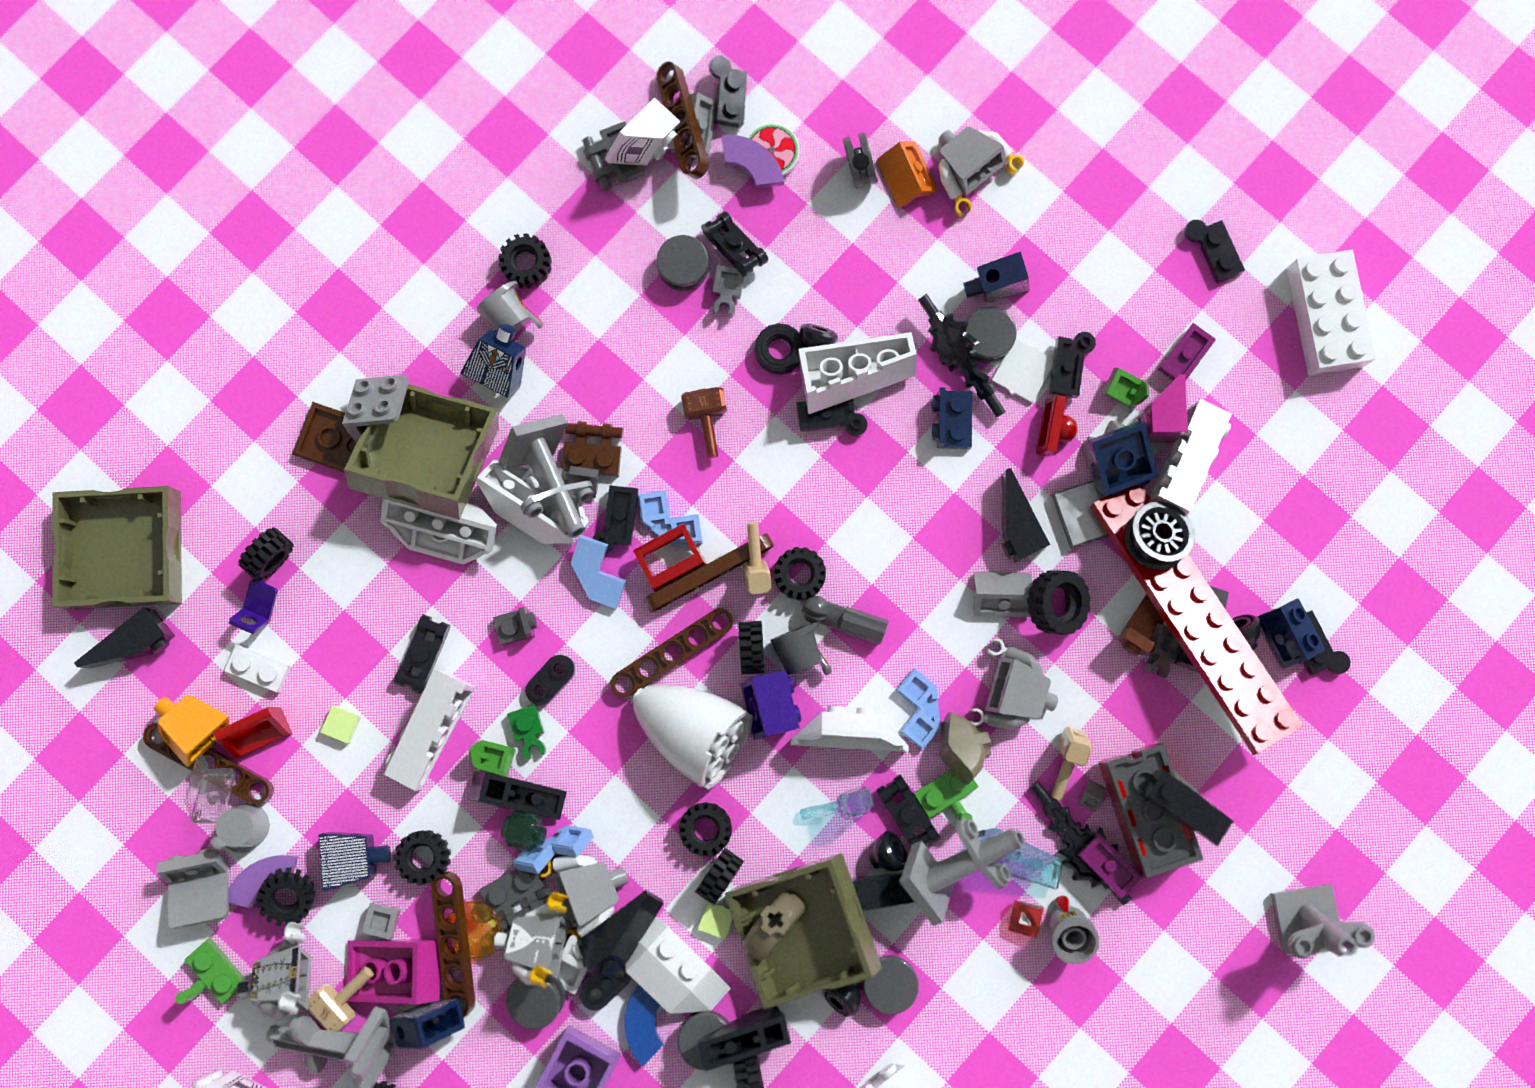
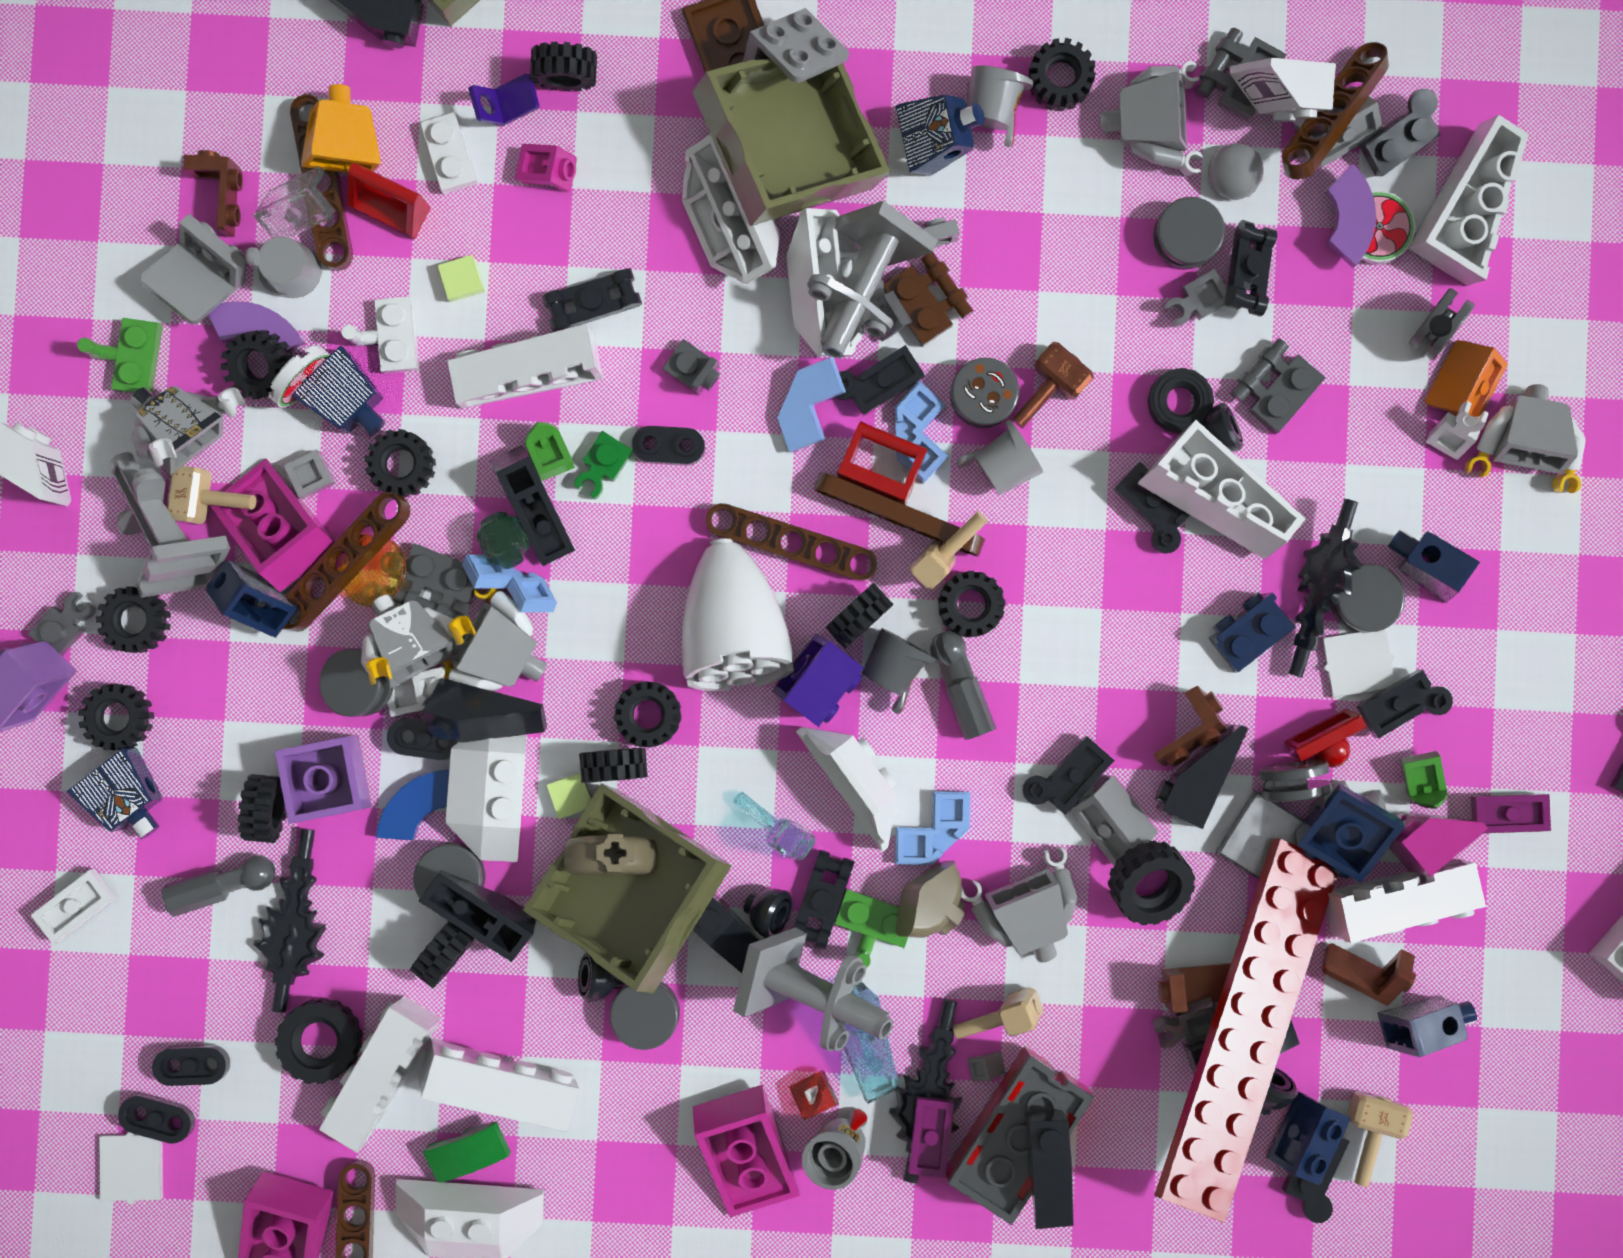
camera: 50 degrees right, 5 degrees up
(140, 823) = (213, 166): none -> copper bracket
(312, 877) = (294, 374): none -> tile
(316, 614) = (546, 166): none -> dark pink bracket
(340, 795) = (394, 335): none -> white plate
(559, 406) = (944, 231): none -> light grey plate
(596, 226) = (1155, 116): none -> light grey torso
(669, 206) = (1235, 171): none -> light grey hair
(678, 461) = (984, 392): none -> dark grey head
(729, 482) = (1005, 460): none -> light grey hat
(806, 93) = (1469, 208): none -> white wedge
(826, 281) = (1286, 393): none -> dark grey plate
(933, 202) = (1457, 434): none -> white plate
(955, 600) = (1070, 778): none -> black hinge
(994, 496) = (1208, 733): none -> copper bracket
(1026, 991) = (744, 1150): none -> dark pink slope
(1062, 469) = (1289, 780): none -> dark grey head
(1148, 547) = (1321, 931): black wheel -> none
(1226, 516) = (1375, 982): none -> copper bracket
(1276, 507) = (1426, 1025): none -> dark blue torso
(1310, 580) = (1380, 1118): none -> tan piece

